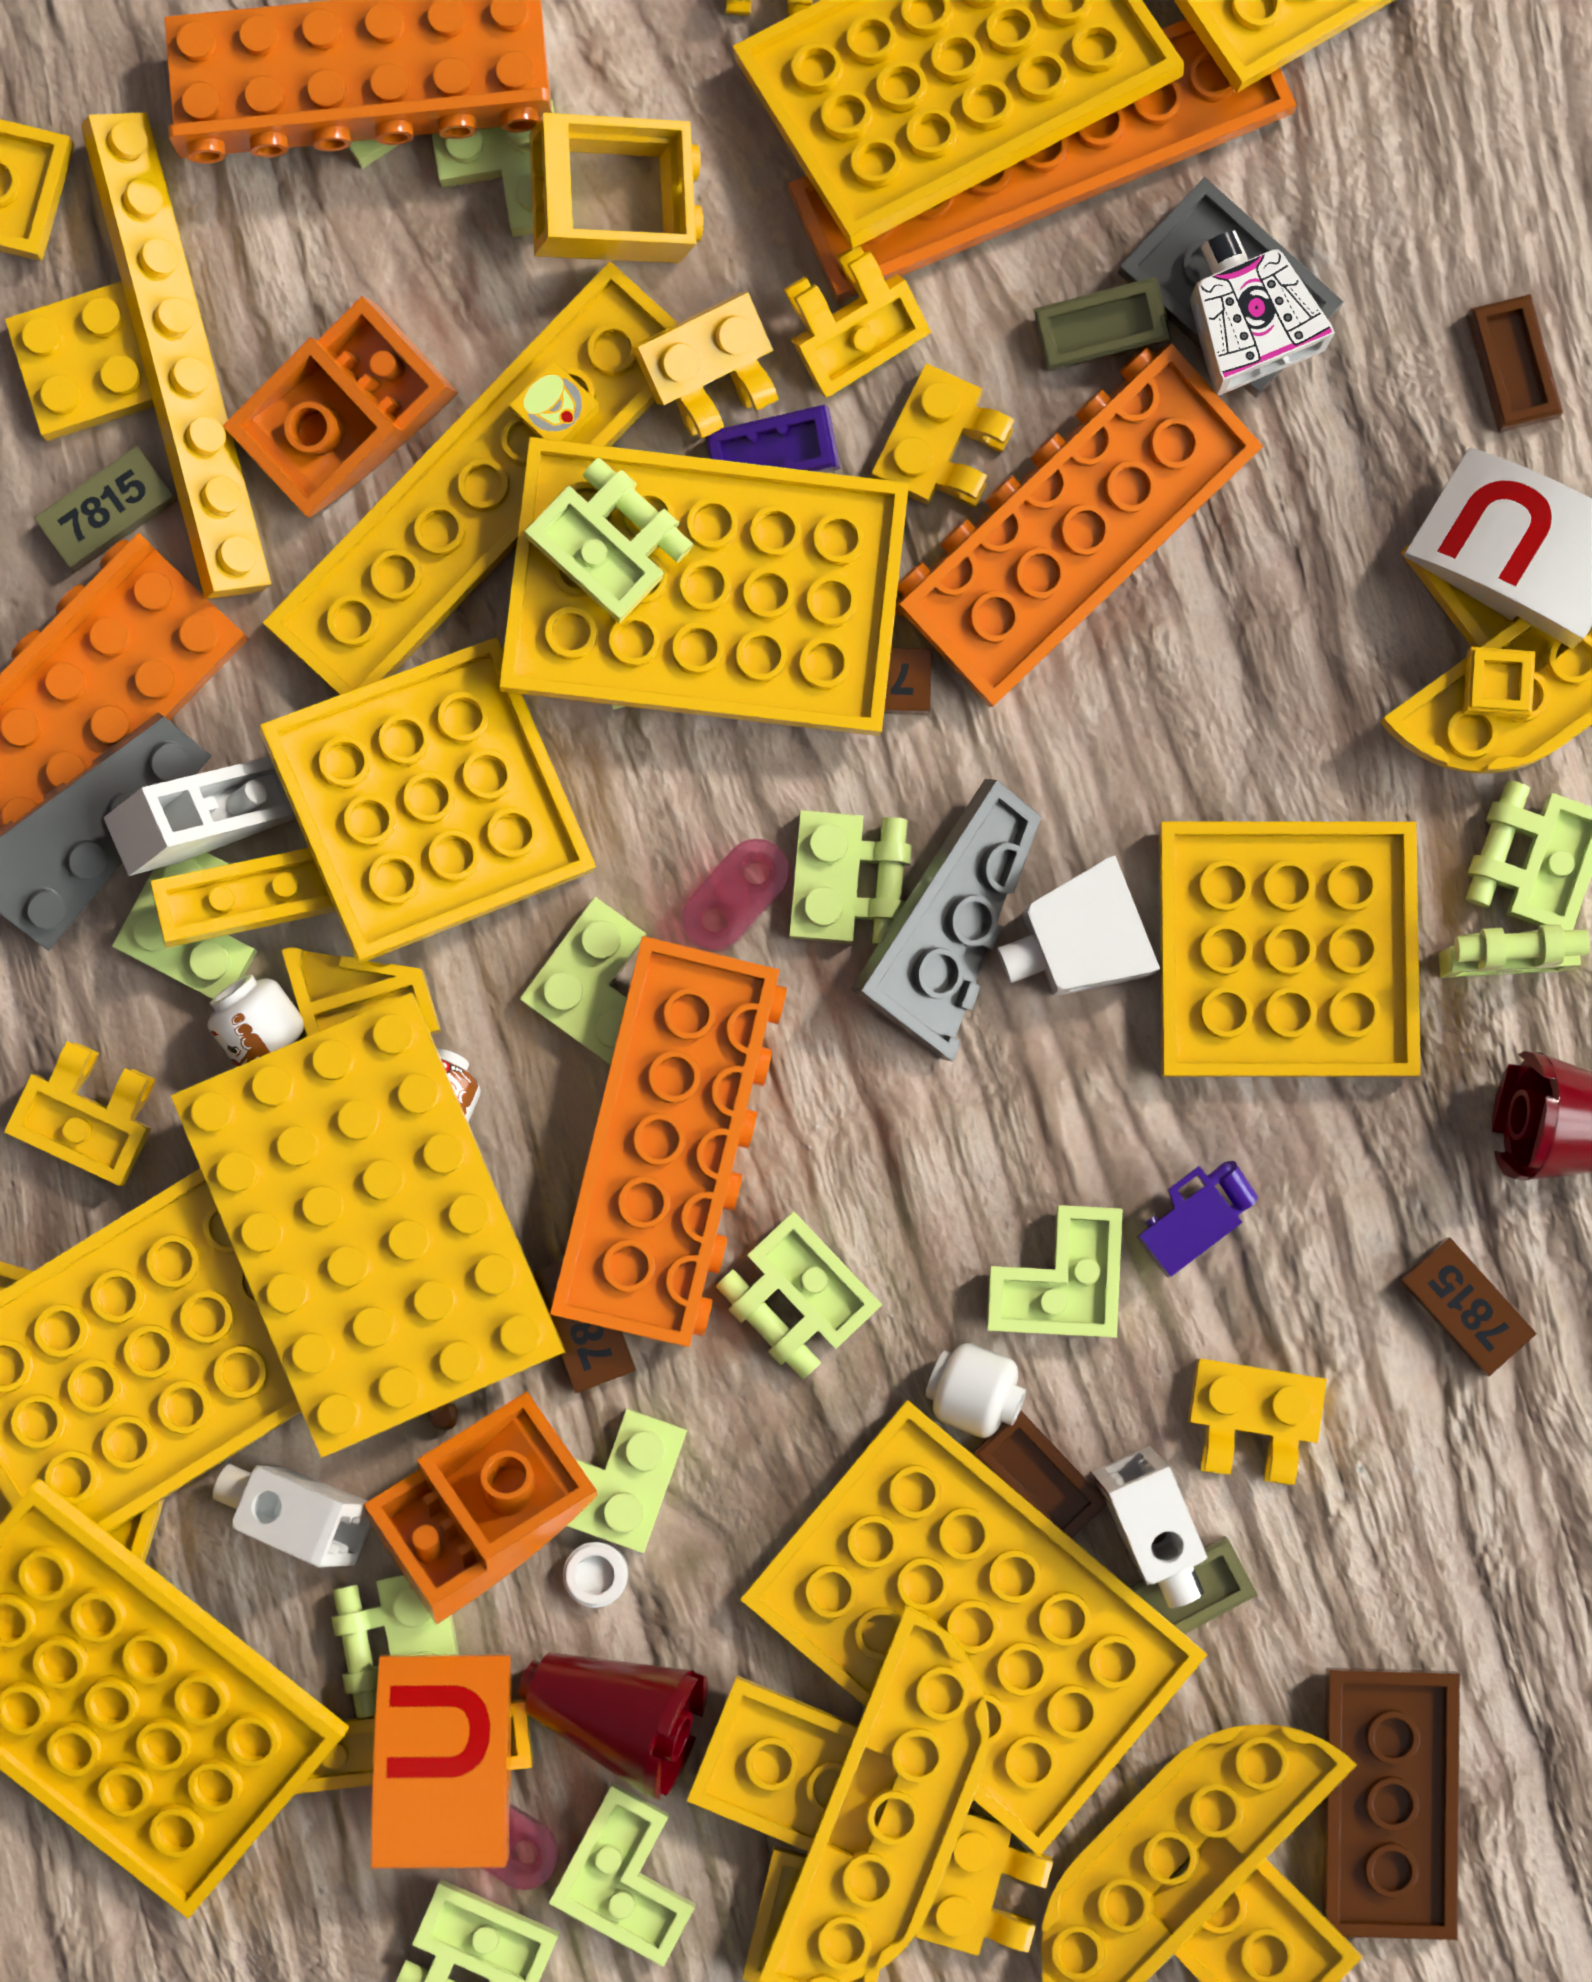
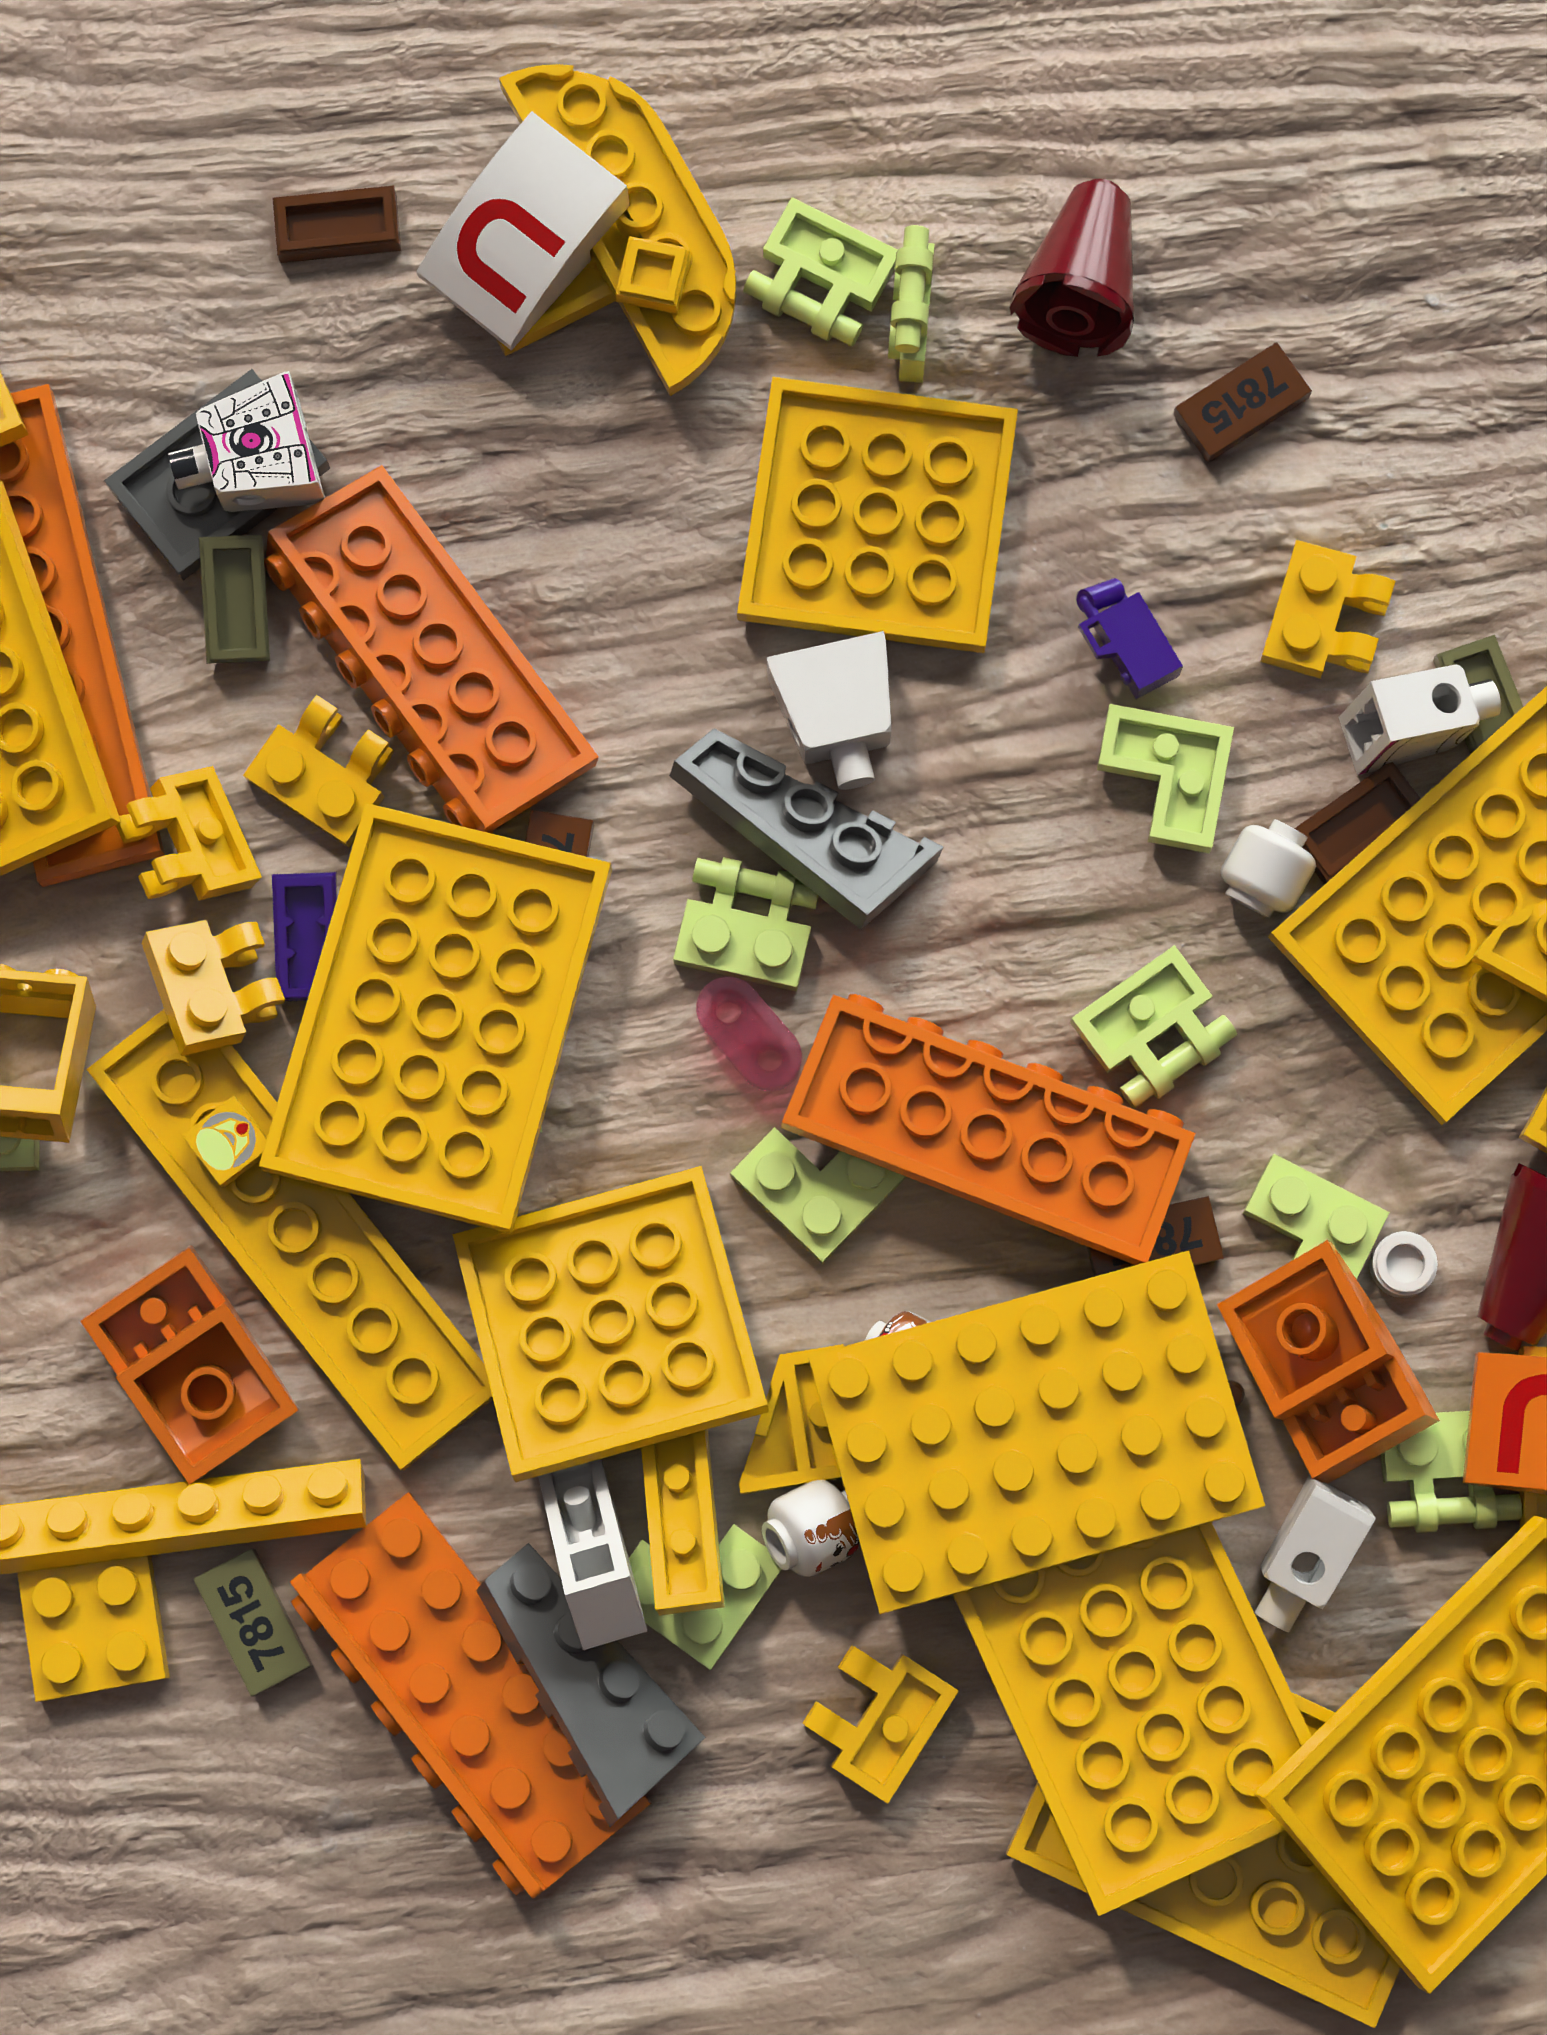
camera: 80 degrees left, 5 degrees down
(595, 552) = (390, 1111): yellowish green plate -> none

